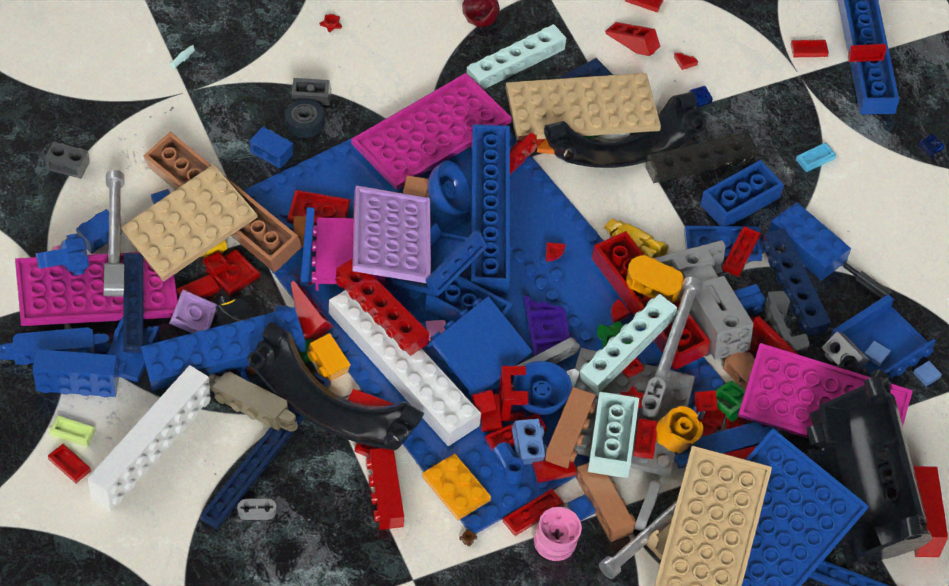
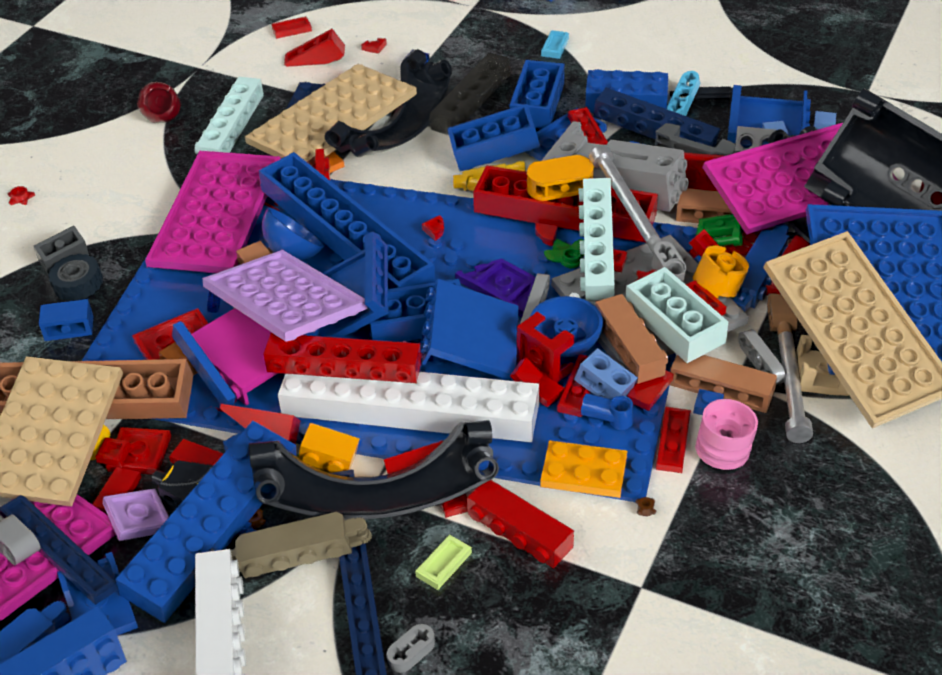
camera: 35 degrees left, 10 degrees down
(258, 301) = (195, 453): none -> red tile
(324, 476) = (443, 562): none -> yellowish green tile
(665, 209) = (493, 137): none -> blue brick
(850, 267) = (682, 87): none -> medium azure beam

